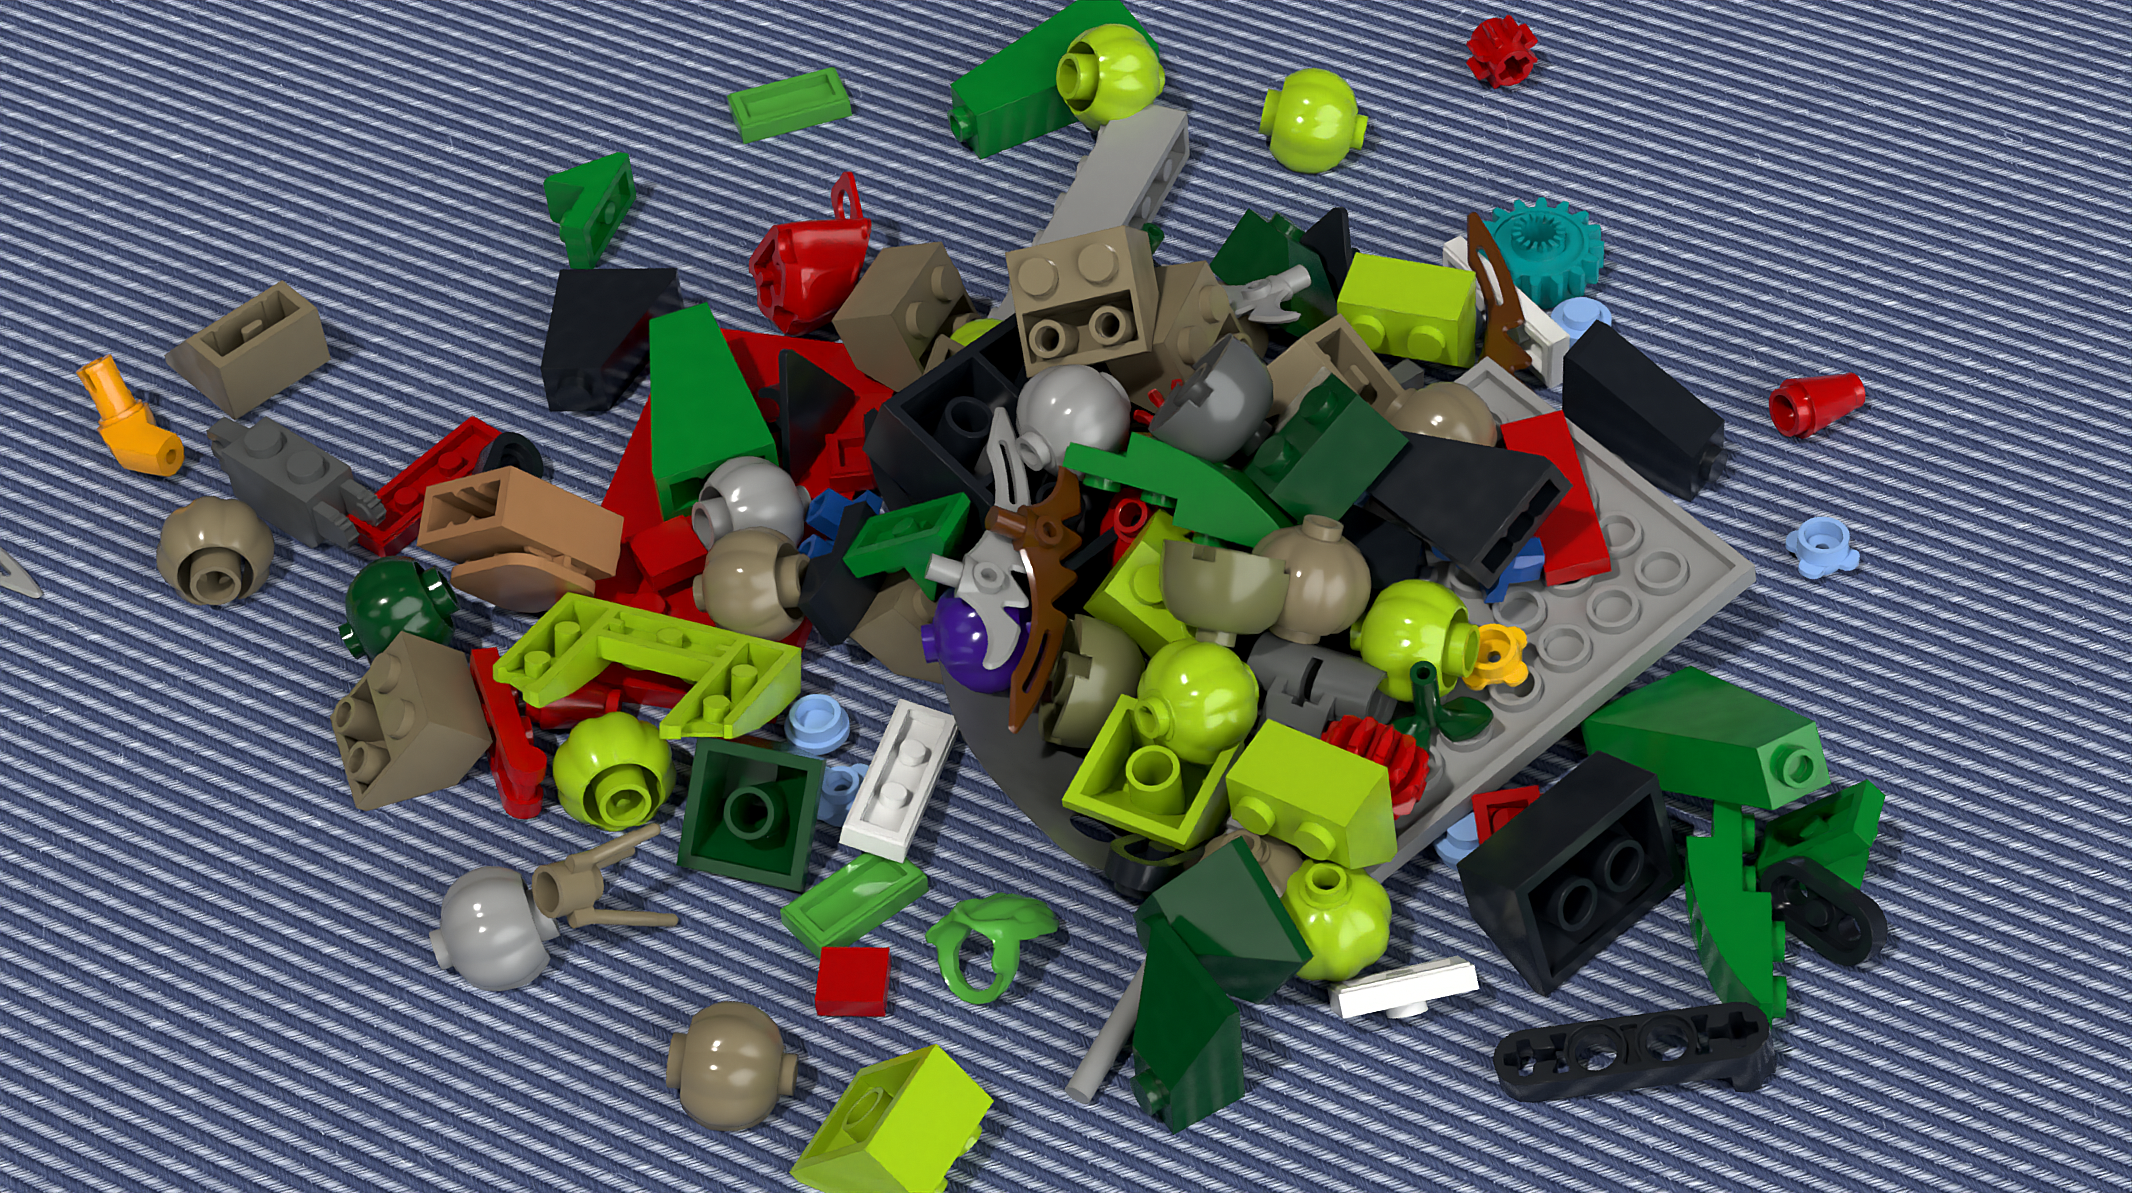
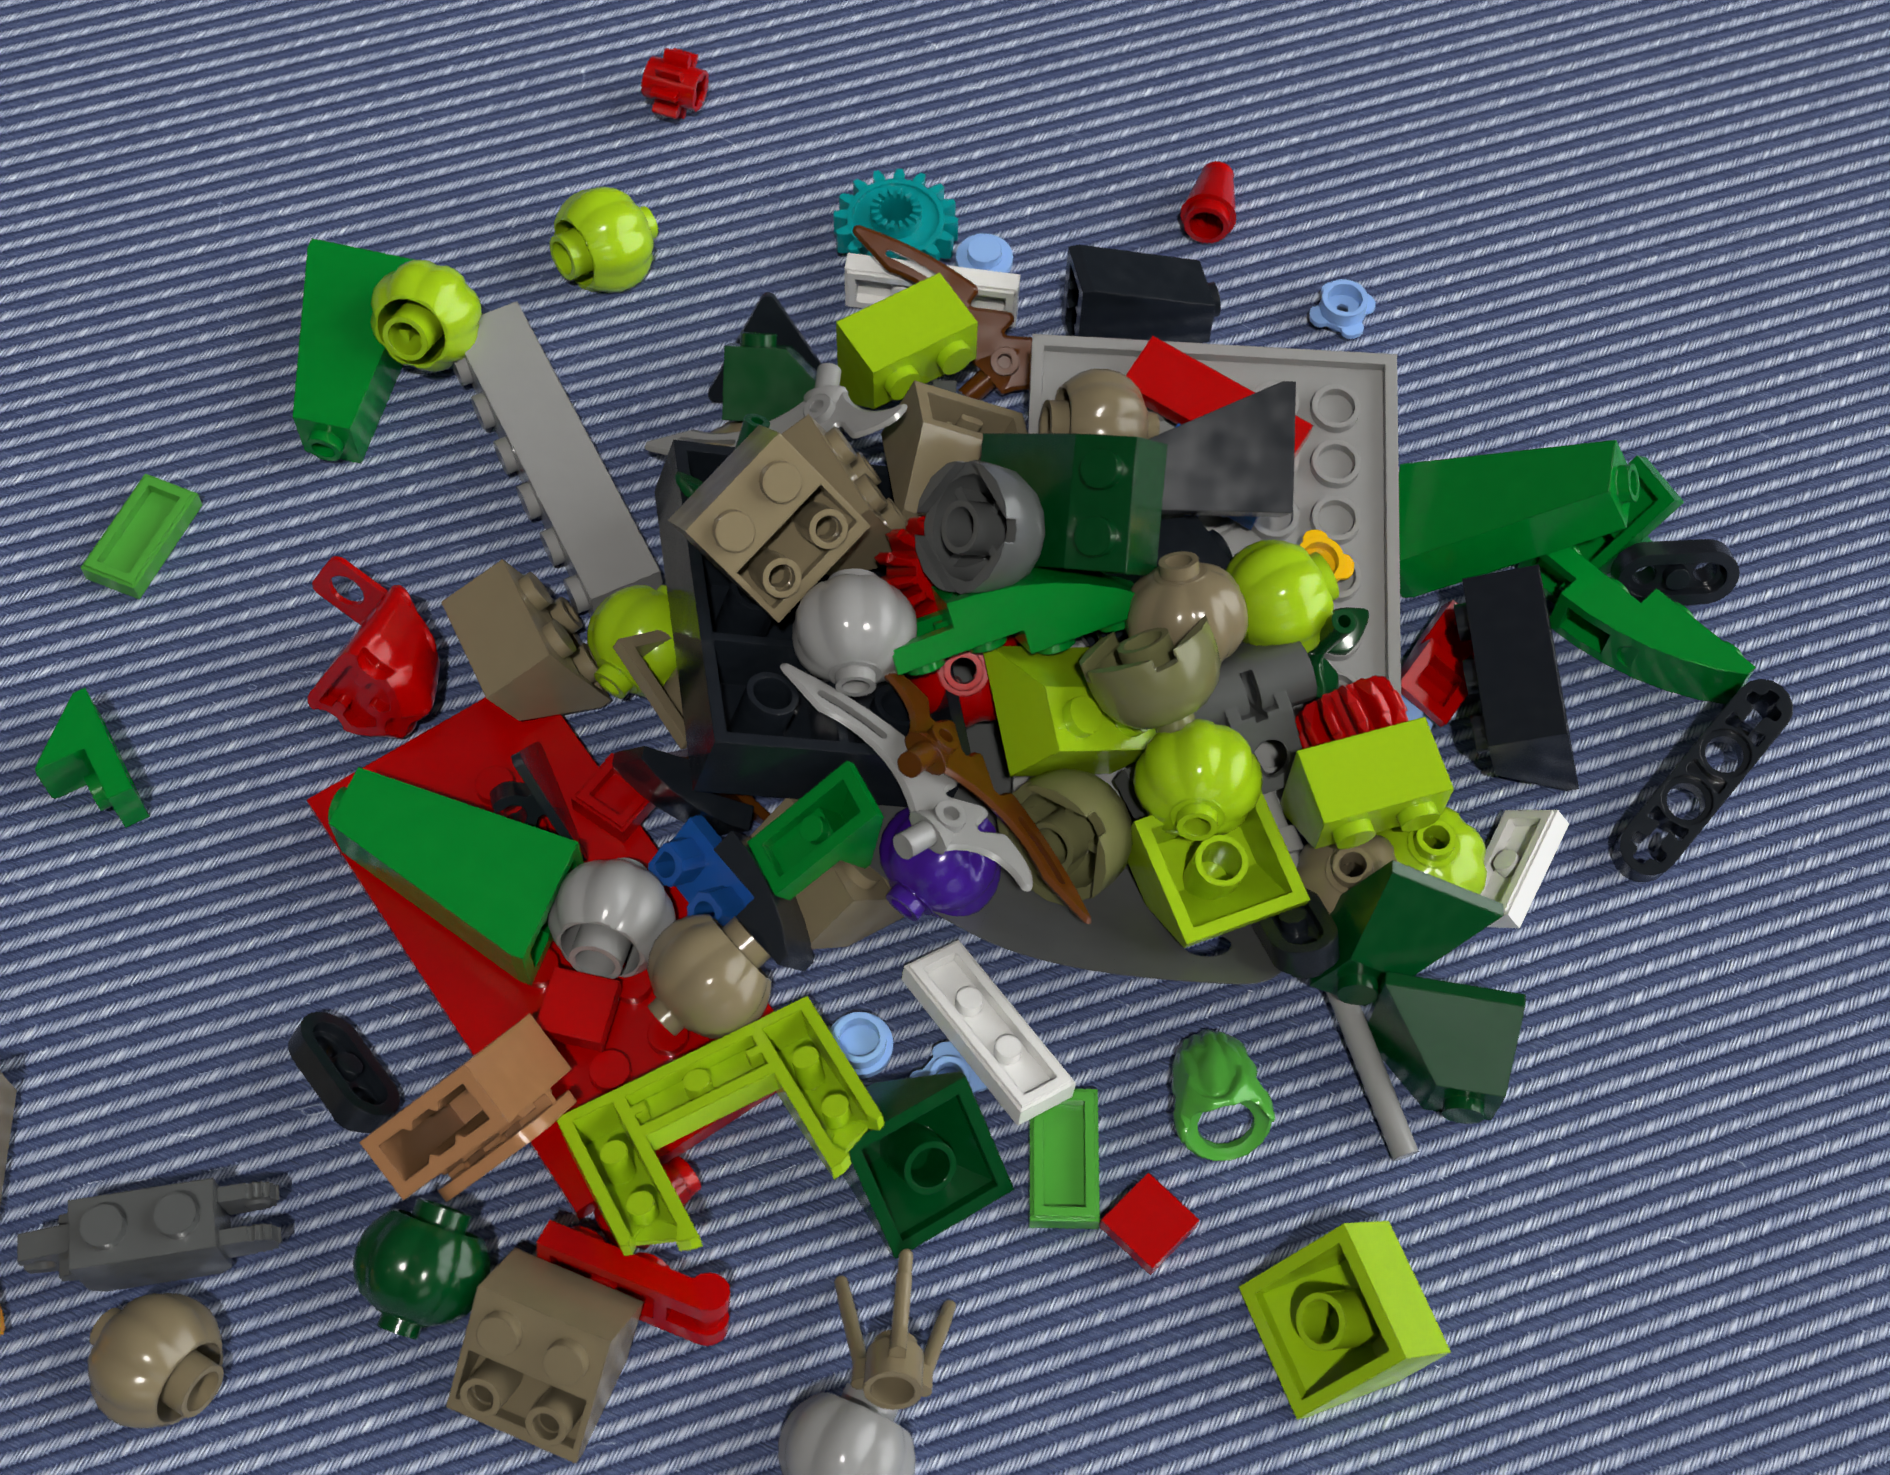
camera: 55 degrees left, 15 degrees up
(405, 494) = (266, 1121): red tile -> none
(602, 333) = (252, 864): black slope -> none
(626, 770) = (766, 1231): lime plant -> none
(730, 1066) = (1167, 1384): dark tan plant -> none

